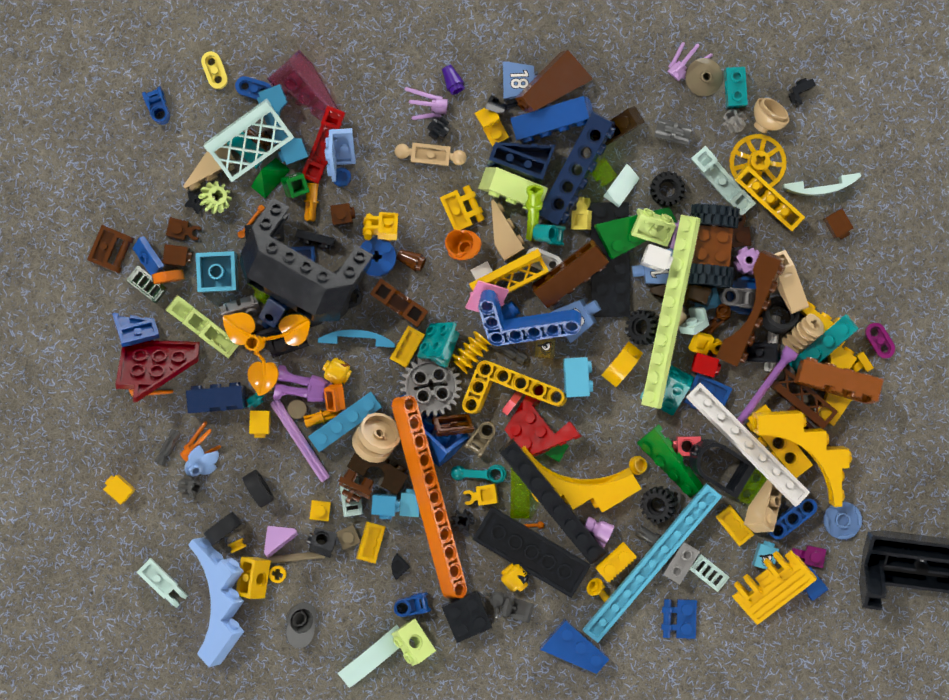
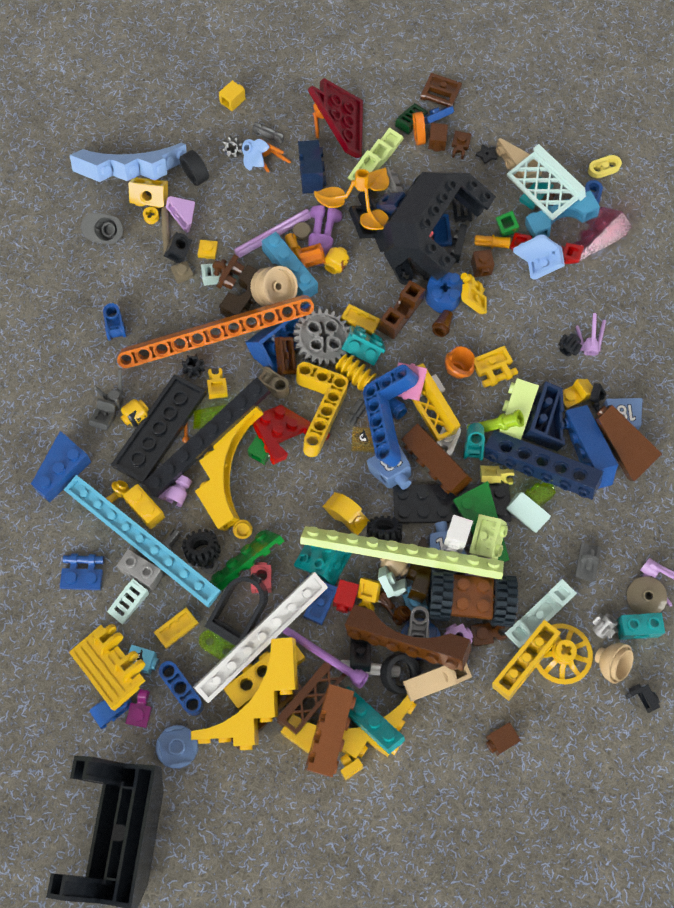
camera: 85 degrees right, 20 degrees down
(135, 329) = (371, 106): wing -> none
(156, 102) = (568, 123): blue piece -> none
(161, 581) = (148, 127): light aqua hinge -> none
(217, 272) = (423, 159): medium azure brick -> none
(219, 192) = (487, 167): yellowish green gear -> none
(237, 545) = (178, 182): yellow bush -> none
(254, 400) = (309, 196): teal plate -> none
(258, 488) = (224, 189): black tyre -> none
(259, 423) = (289, 199): yellow brick -> none
(269, 177) = (515, 204): green slope -> none
(332, 338) = (368, 259): dark azure slope -> none
(343, 177) = (516, 266): blue tile -> none
(369, 659) = (70, 293): light aqua slope -> none
(370, 542) = (175, 288): yellow plate -> none
(385, 505) = (209, 295): dark azure brick -> none
(399, 566) = (152, 314): black tile -> none
(409, 504) = (208, 316): medium azure brick -> none
(423, 647) = (88, 316): yellowish green brick -> none
(430, 154) = (544, 339): tan plate -> none
(452, 80) = (617, 358): dark purple cone -> none
(459, 472) = (239, 365): teal piece -> none
(467, 616) = (98, 368): black brick -> none
(504, 237) = (469, 402): tan slope -> none
(512, 402) = (306, 410): coral tile -> none
(576, 377) = (332, 465): medium azure brick -> none
(625, 123) = (590, 512): dark brown slope -> none
(667, 177) = (532, 547): black tyre -> none
(764, 509) = (190, 655): tan slope -> none
(798, 187) = (549, 747): light aqua slope -> none
(804, 333) = (382, 697): tan piece -> none
(879, 340) = (375, 788): magenta plate -> none

